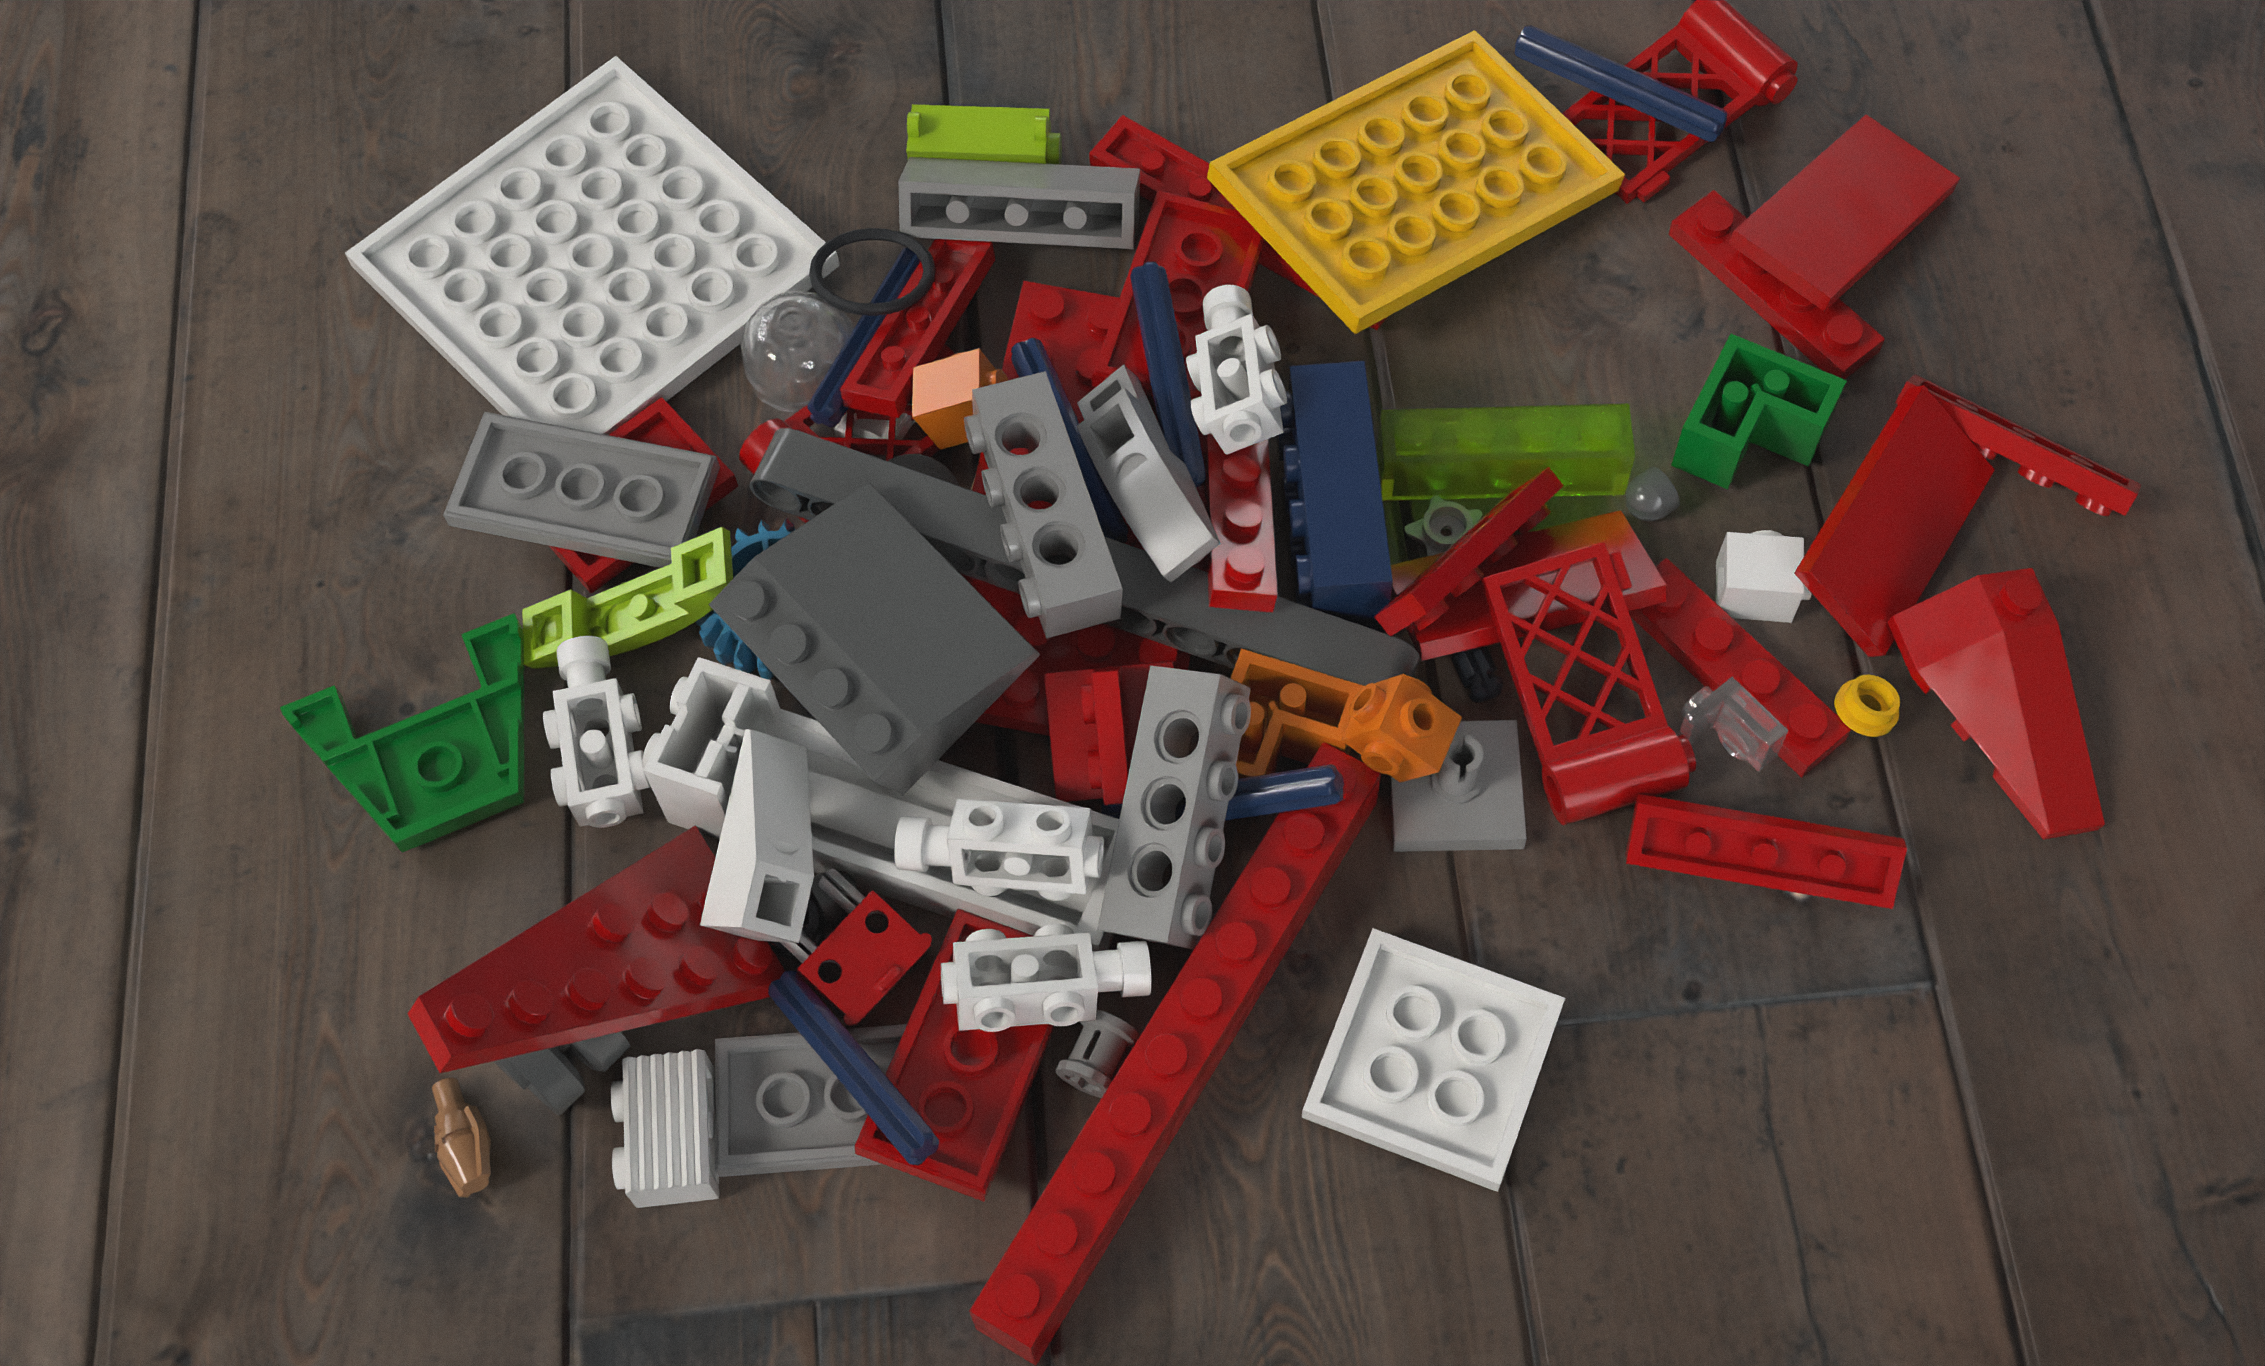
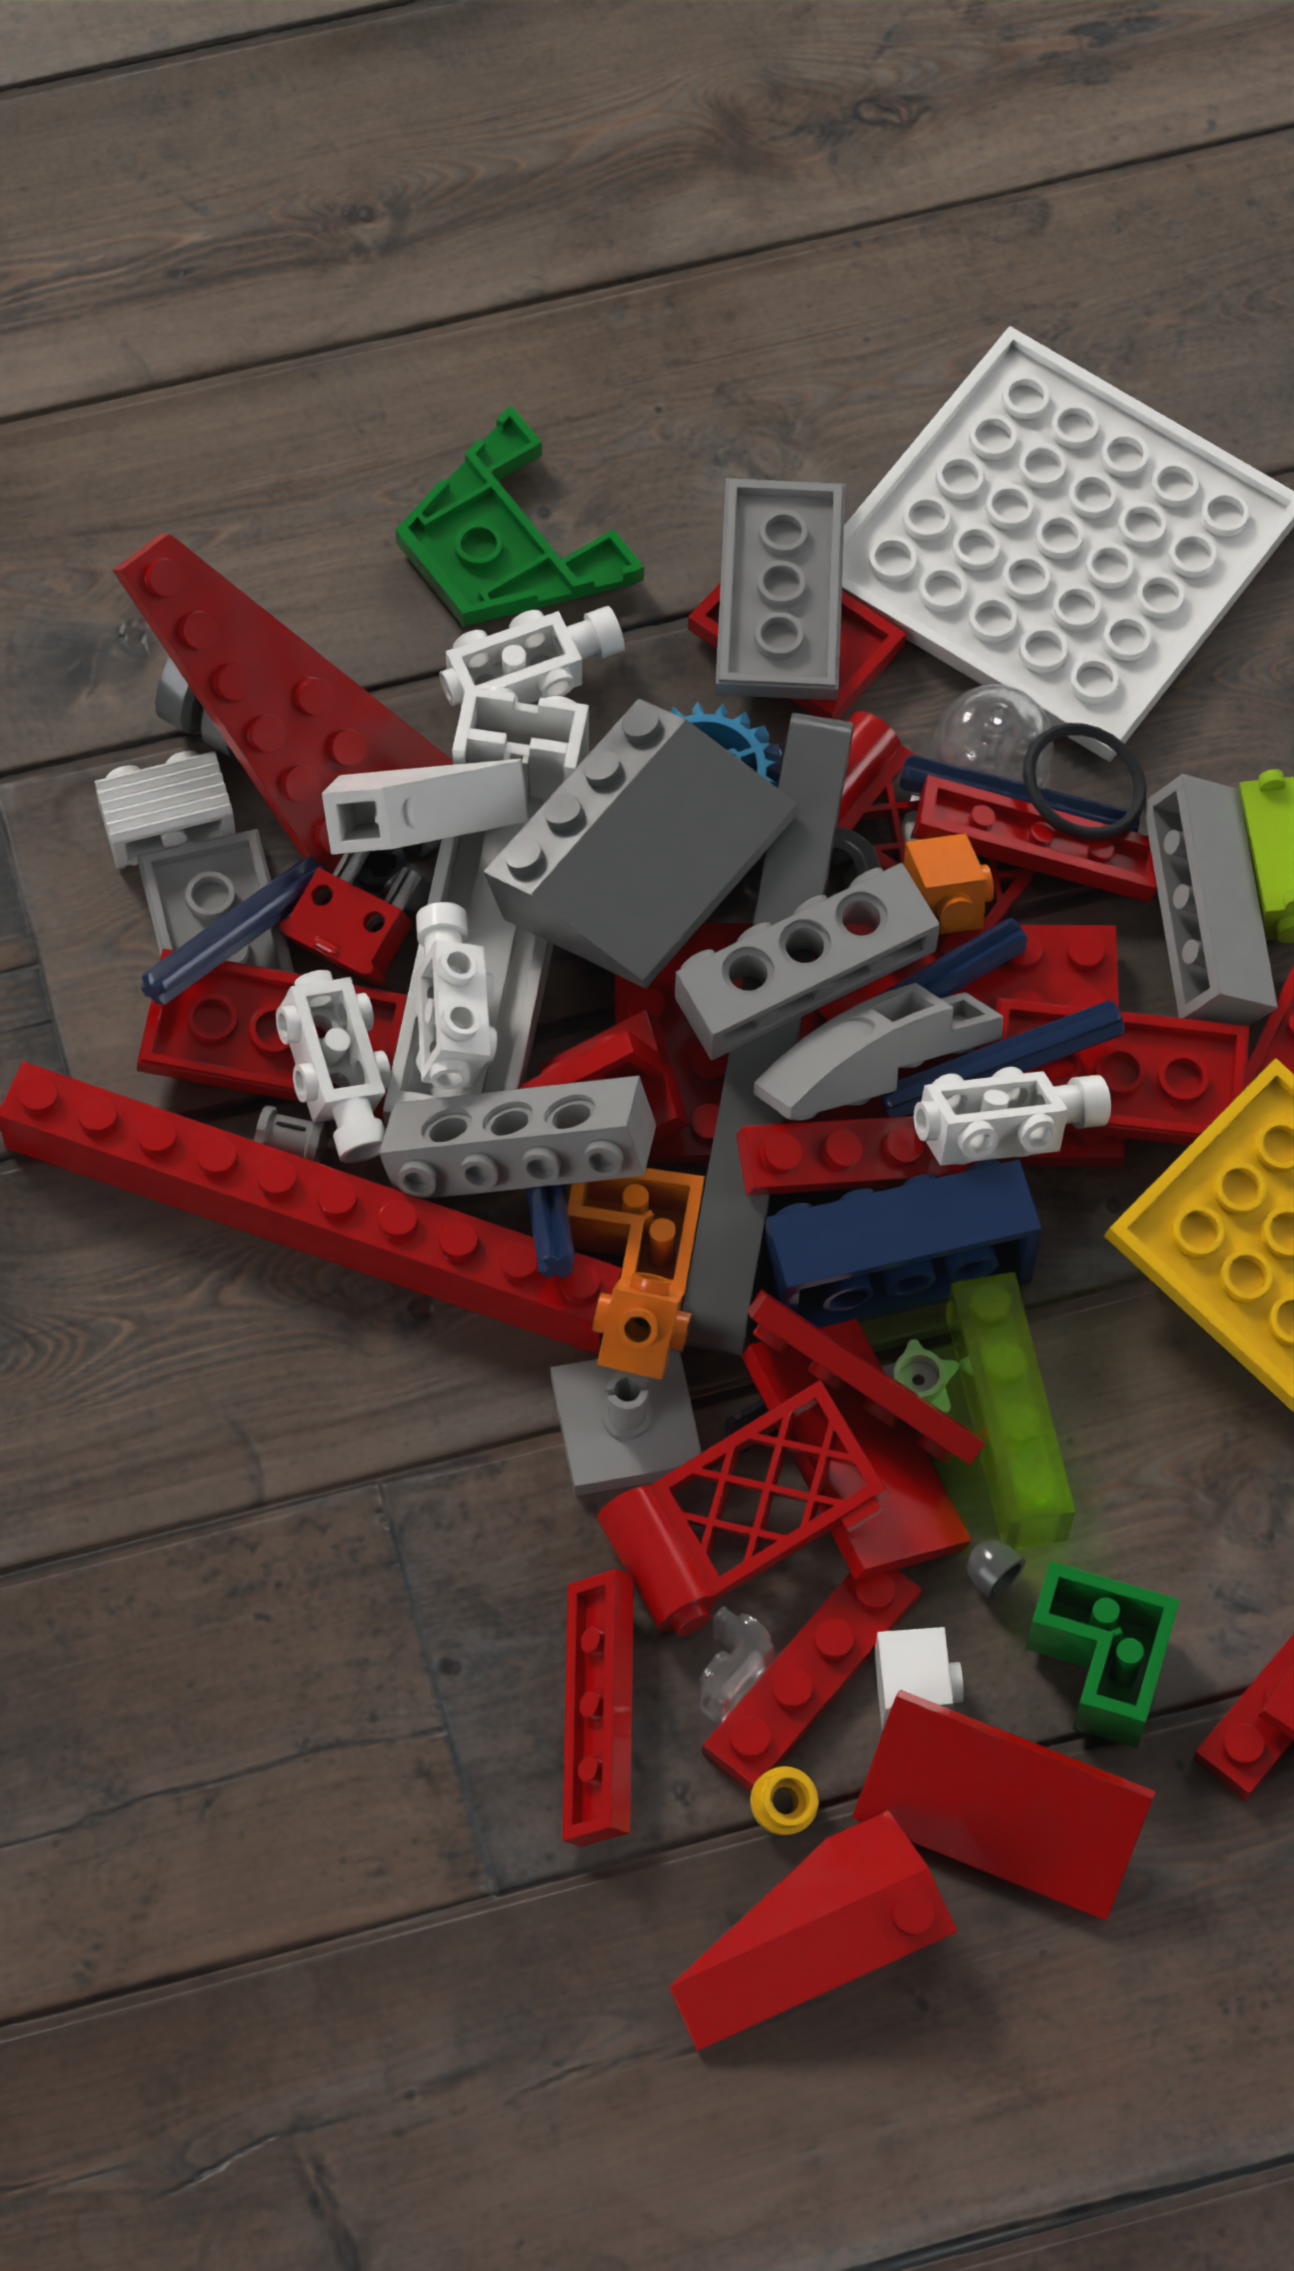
camera: 75 degrees right, 0 degrees up
(461, 1139) = (126, 657): medium nougat piece -> none
(637, 609) = (661, 653): lime slope -> none
(1434, 1059) = (333, 1429): white plate -> none
(2039, 458) = (1137, 1938): red plate -> none

